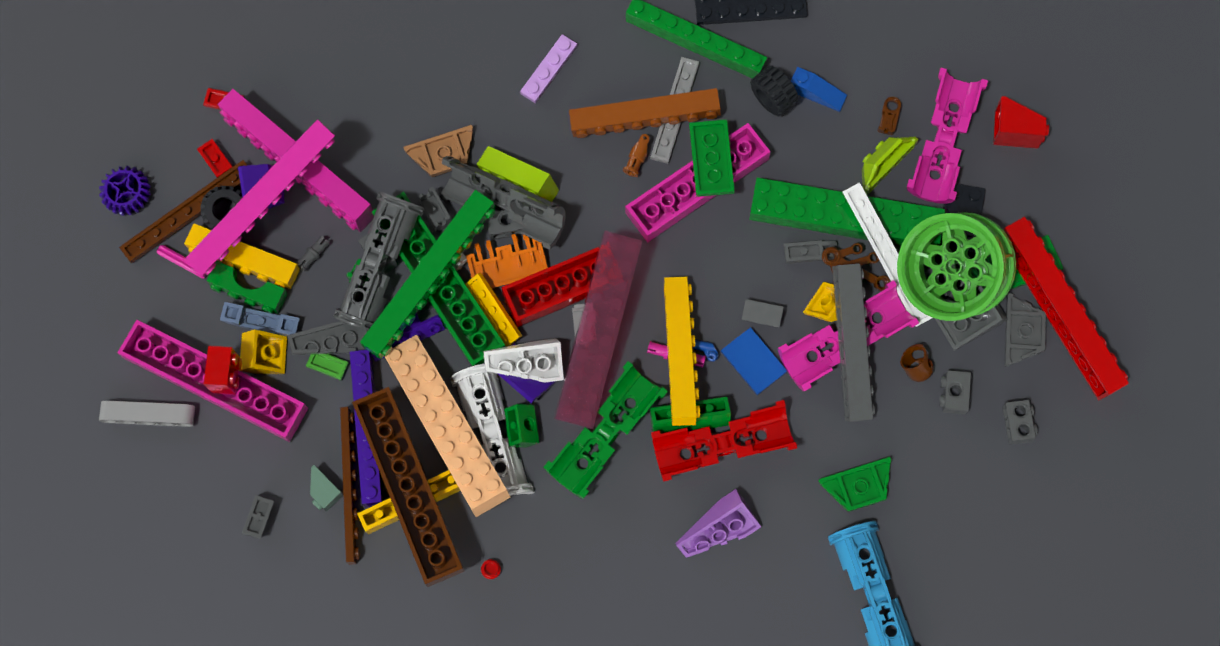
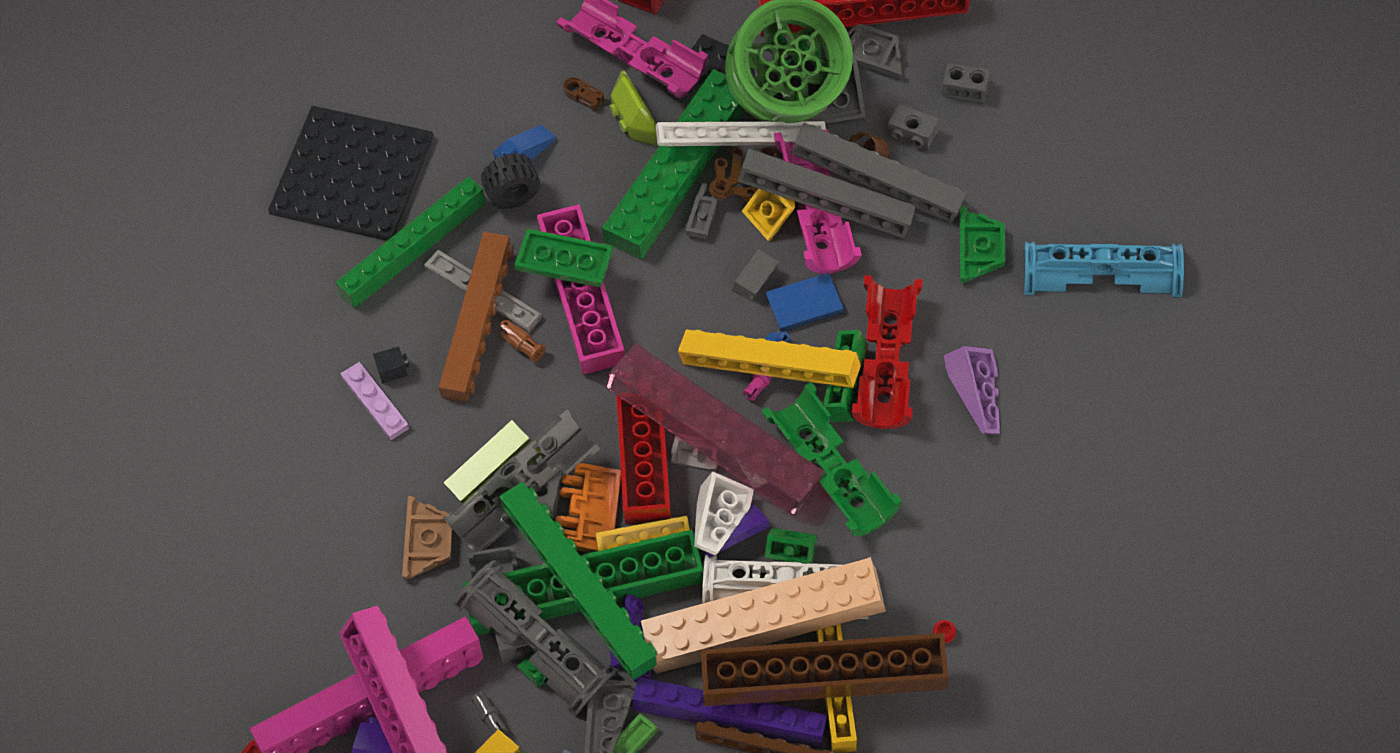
camera: 70 degrees left, 15 degrees down
(581, 67) = (391, 364): none -> black brick
(890, 378) = (878, 172): none -> dark grey brick

